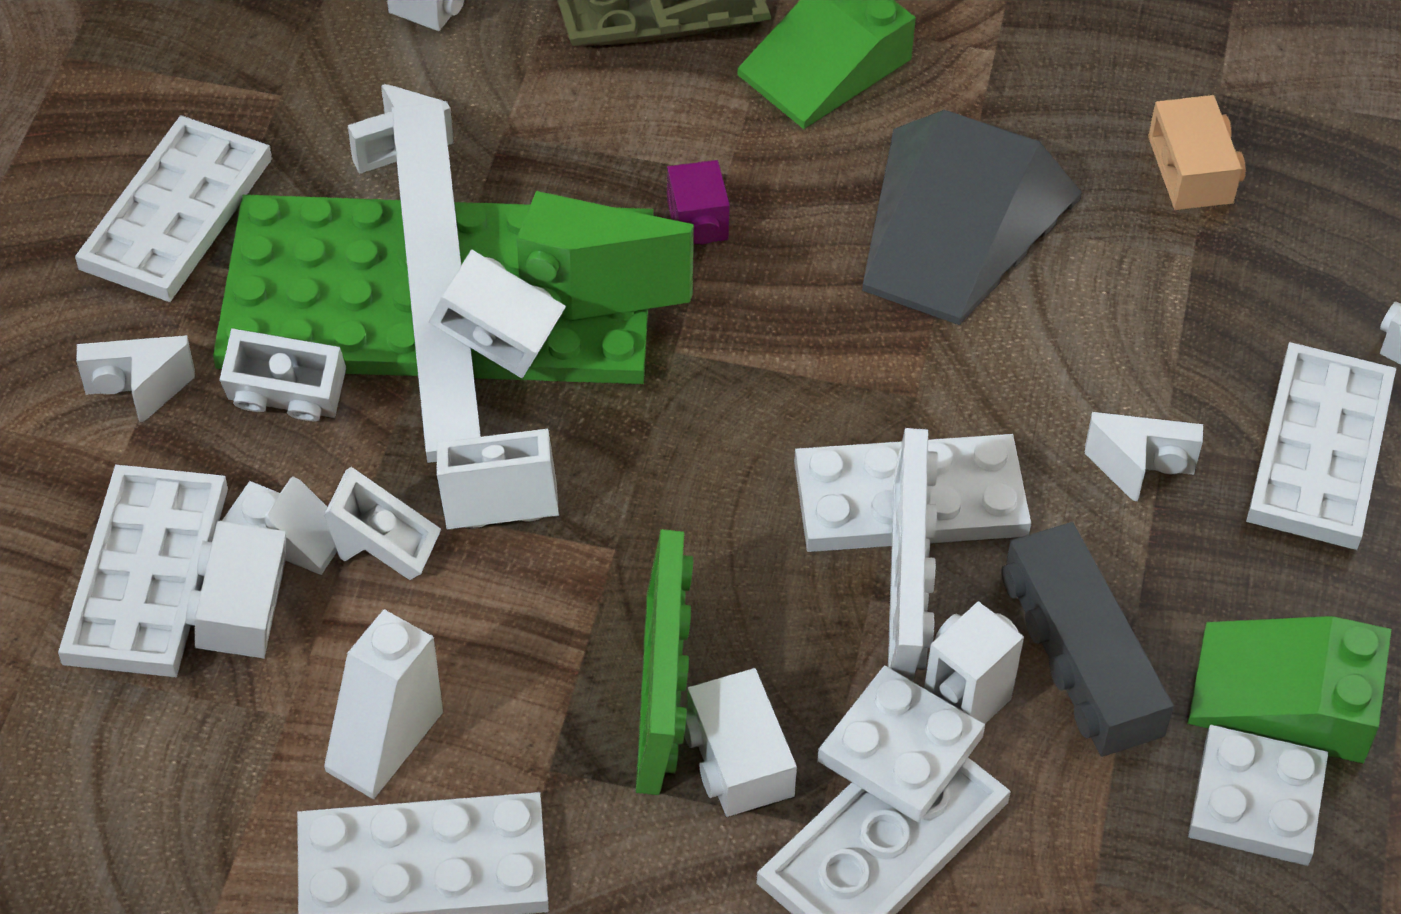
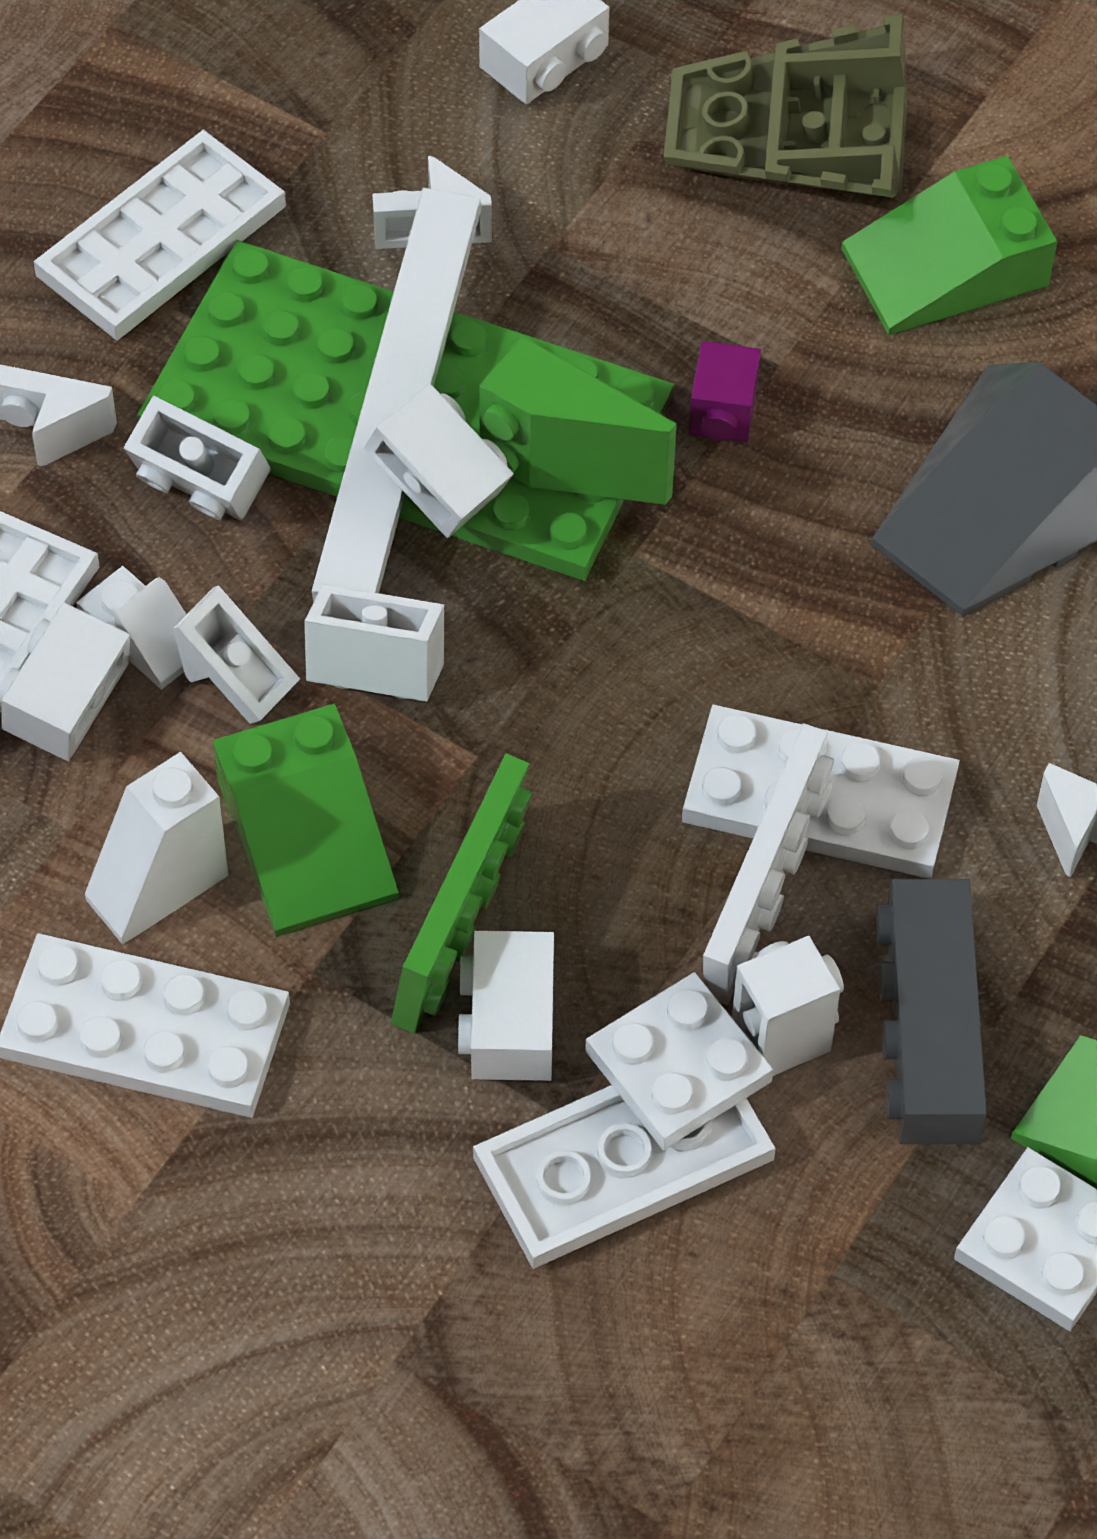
camera: 20 degrees right, 5 degrees up
(497, 643) = (304, 819): none -> bright green slope

